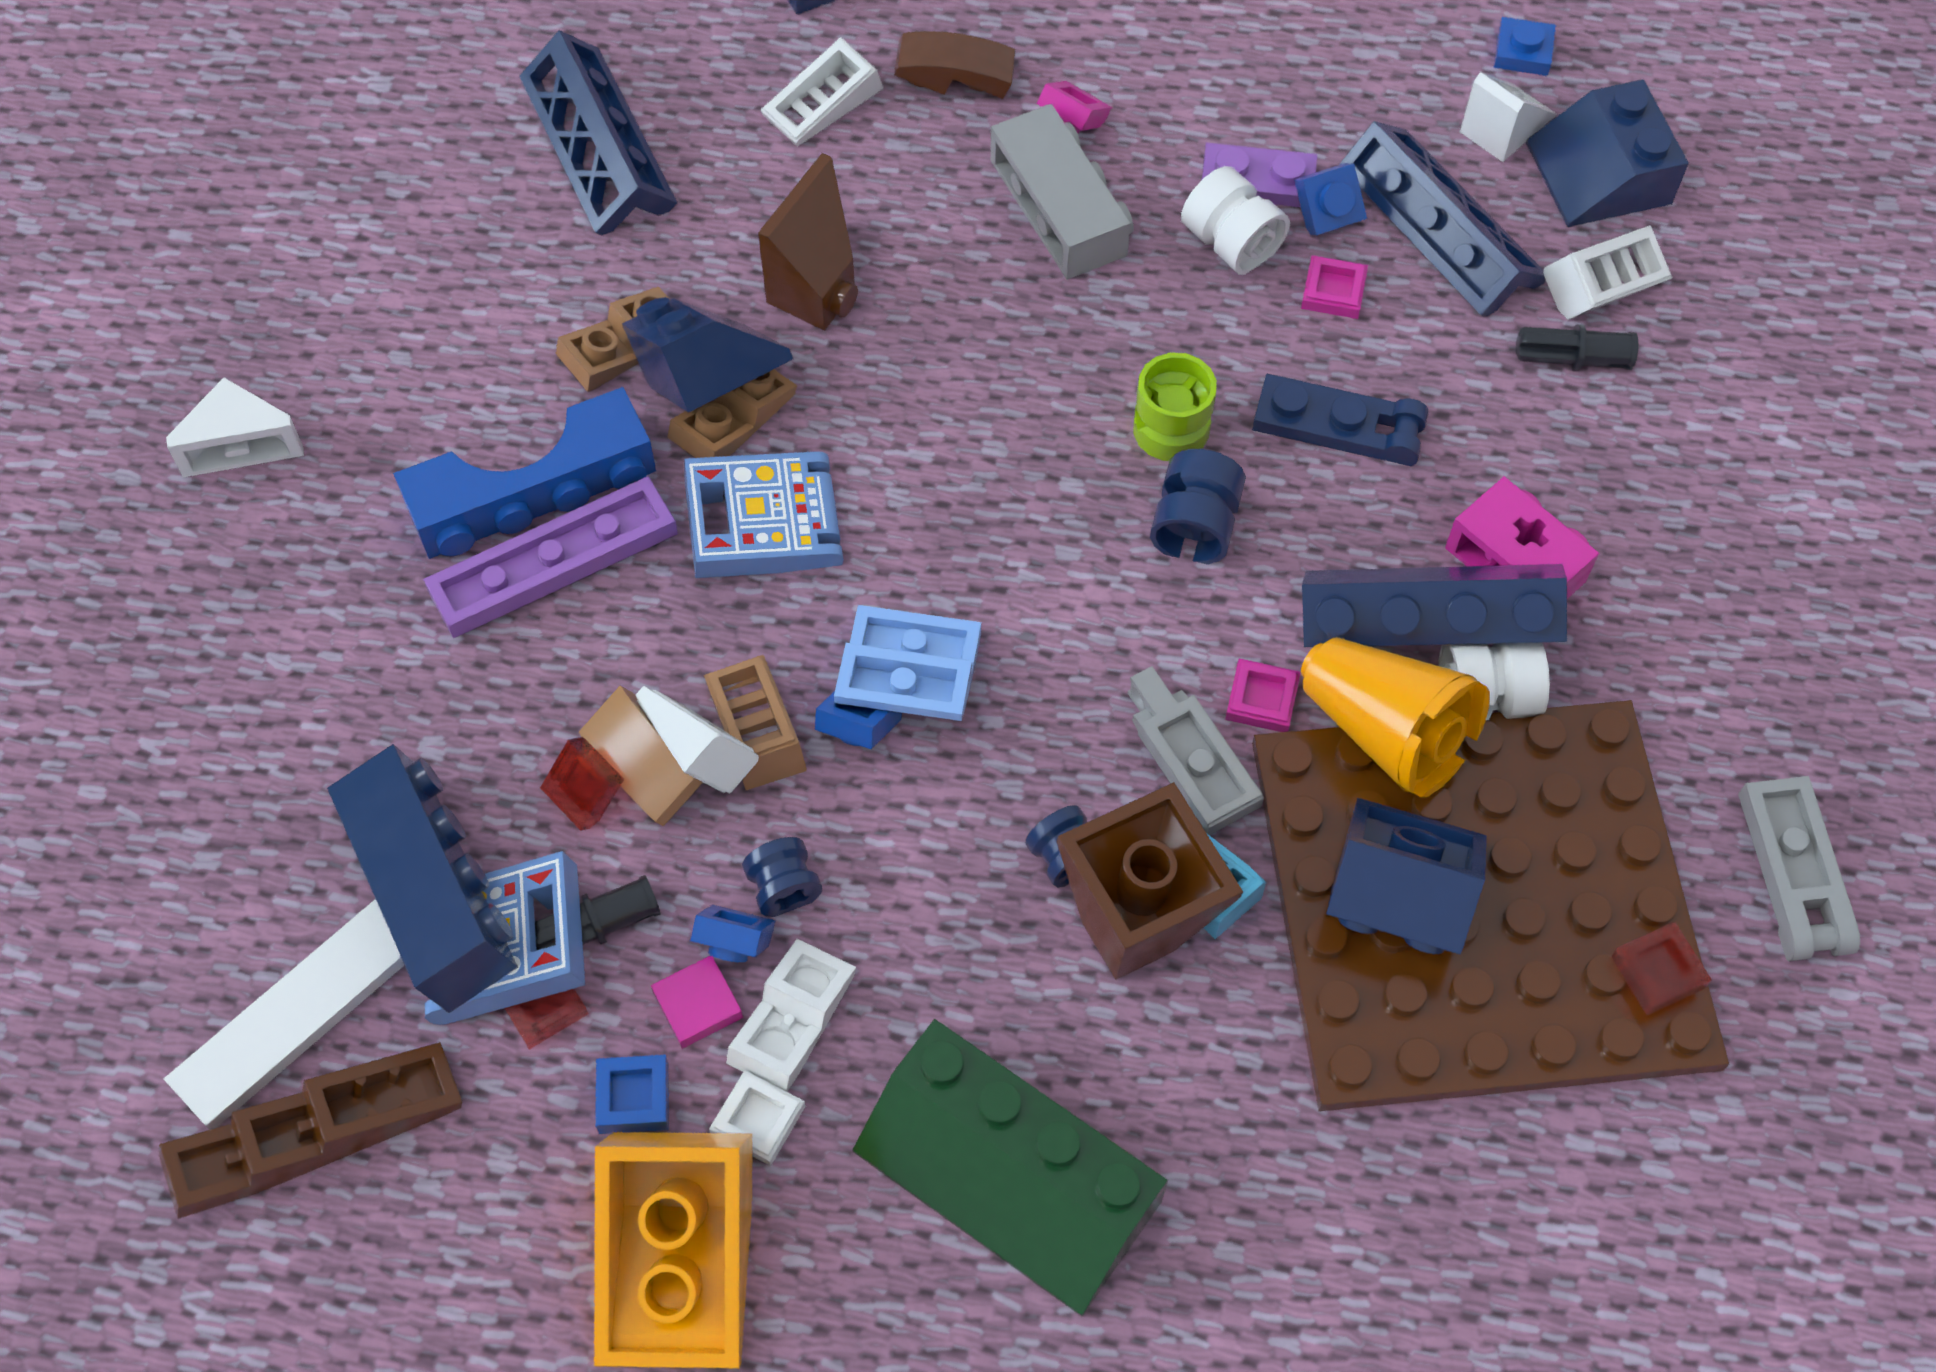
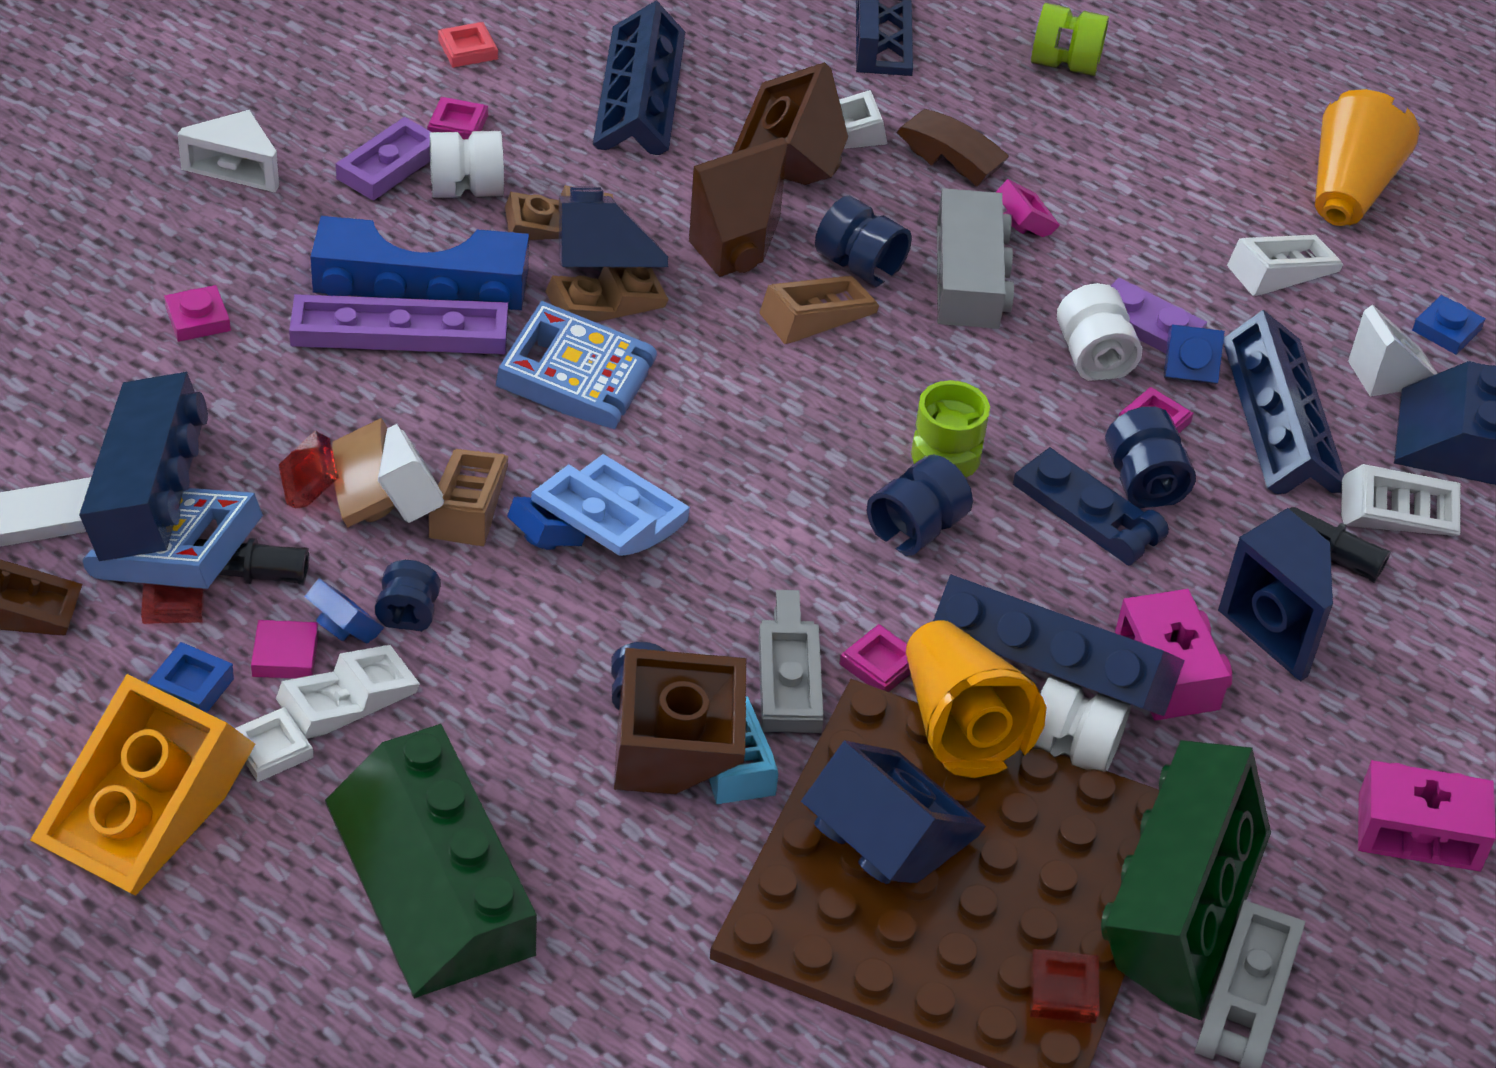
camera: 25 degrees right, 15 degrees down
(328, 649) = (197, 313): none -> dark pink plate
(383, 171) = (467, 44): none -> coral tile
(401, 357) = (386, 159): none -> medium lavender plate
(437, 272) = (458, 116): none -> dark pink tile
(493, 327) = (466, 164): none -> white wheel
(791, 115) = (807, 115): none -> reddish brown slope
(936, 350) = (797, 311): none -> medium nougat slope
(947, 223) = (862, 240): none -> dark blue wheel
(1330, 64) = (1263, 263): none -> white slope
(1363, 335) = (1150, 458): none -> dark blue wheel
(1594, 435) = (1281, 590): none -> dark blue slope
(1692, 786) = (1189, 874): none -> dark green slope
(1835, 603) = (1426, 815): none -> dark pink brick

